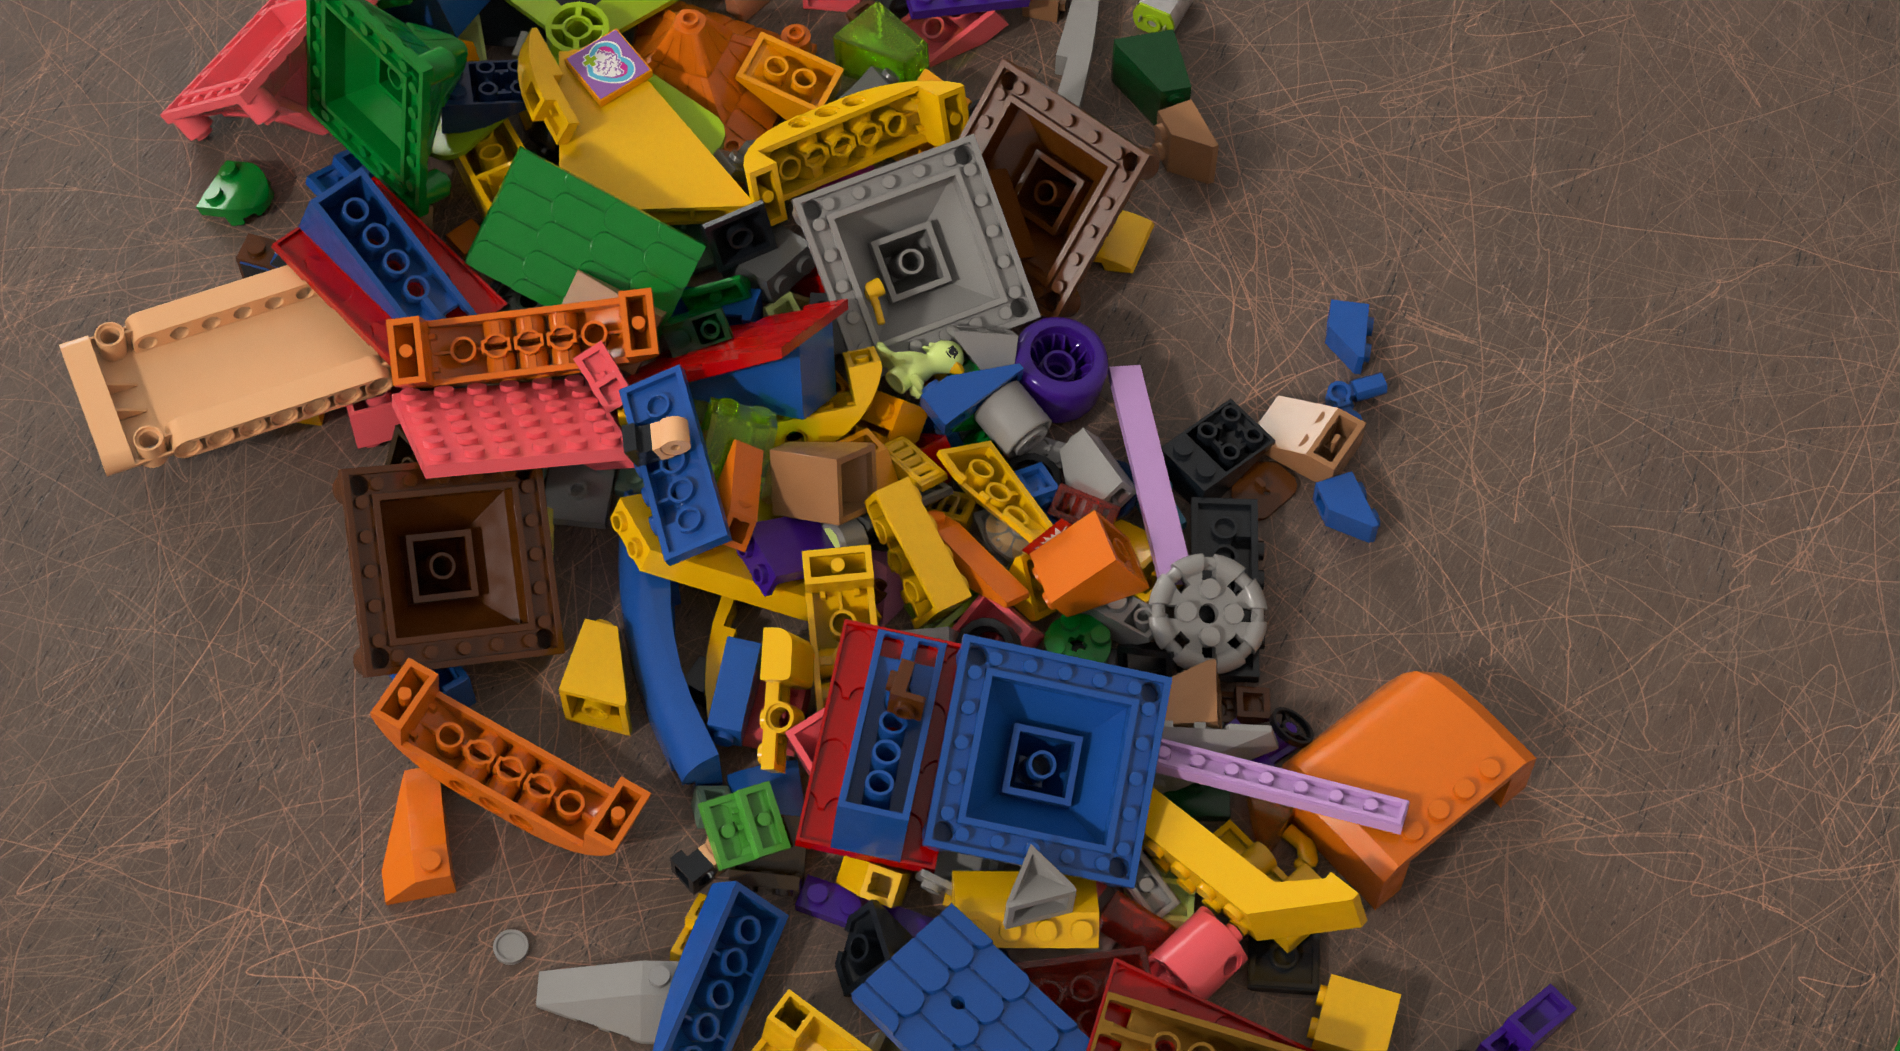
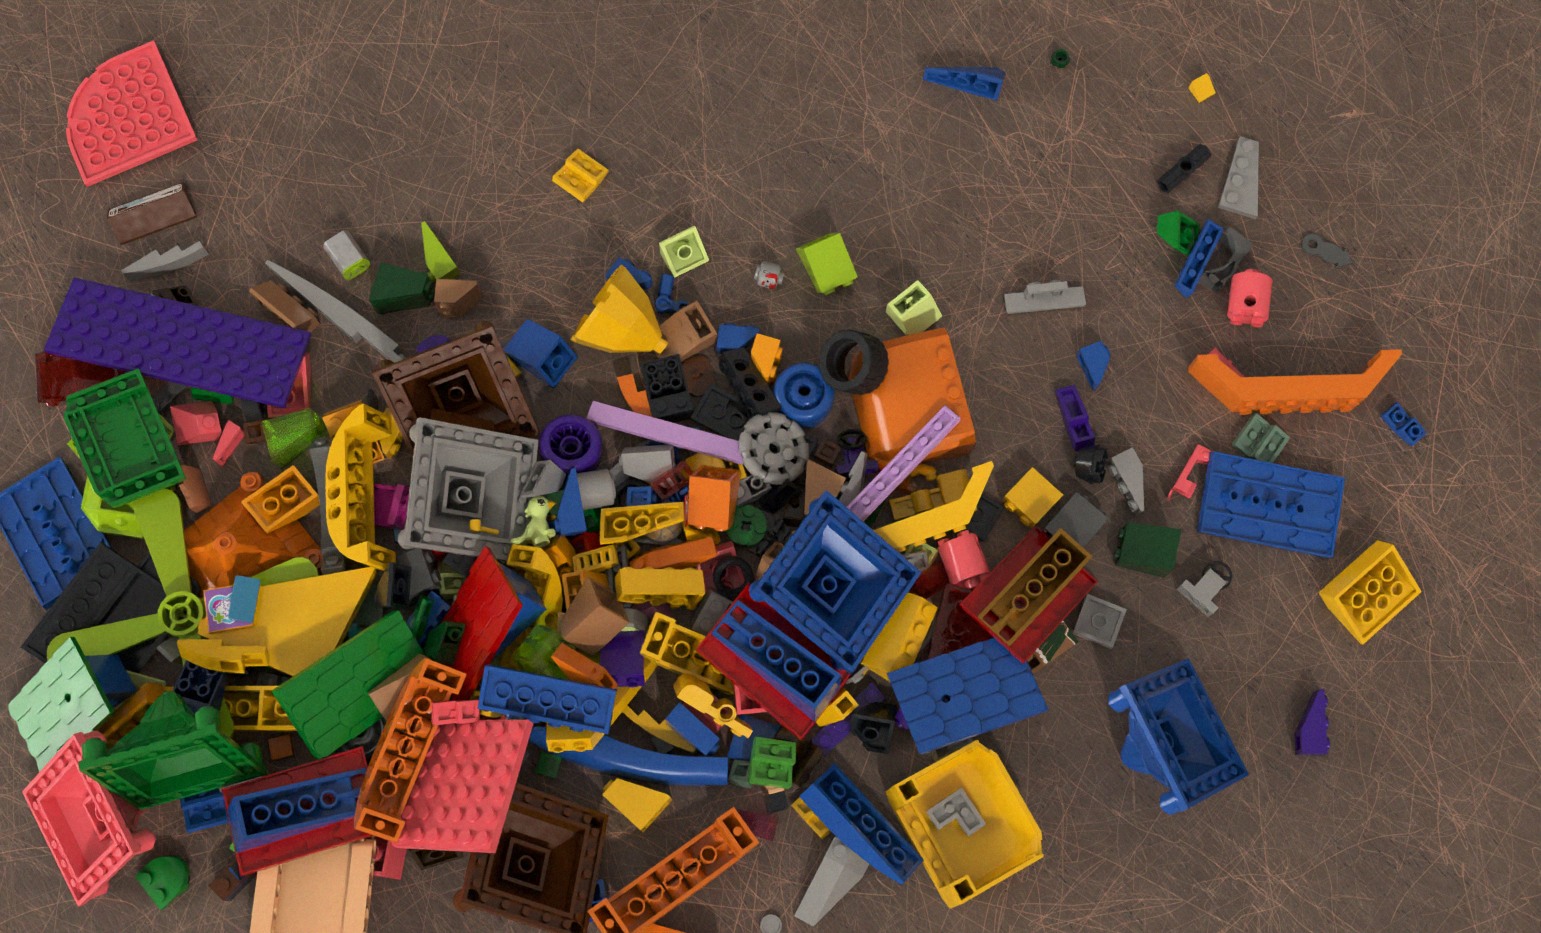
camera: 65 degrees left, 15 degrees up
(600, 556) = (548, 765): none -> green tile
(627, 71) = (244, 599): none -> dark azure slope
(646, 860) = (760, 825): none -> clear pink slope
(656, 440) = (531, 703): leg -> none
(901, 702) = (758, 639): reddish brown bracket -> none
(1038, 892) = (902, 625): light grey slope -> none
(1171, 280) = (541, 352): none -> blue slope
(1183, 411) = (636, 401): none -> orange slope
(1229, 99) = (436, 258): none -> lime slope
(1276, 334) = (621, 319): none -> yellow piece
(1287, 543) = (748, 383): none -> black brick
(1315, 628) = (809, 409): none -> blue wheel
(1338, 553) = (766, 355): none -> light orange slope
(1399, 652) = (833, 362): none -> black tyre
(1432, 382) = (683, 251): none -> yellowish green slope
(1459, 213) = (580, 175): none -> yellow slope
(1469, 505) = (768, 275): none -> light grey head
(1538, 572) = (827, 263): none -> lime slope
(1546, 718) = (914, 309): none -> yellowish green slope
(1631, 1022) = (1094, 362): none -> blue slope
(1690, 902) = (1045, 297): none -> light grey bracket

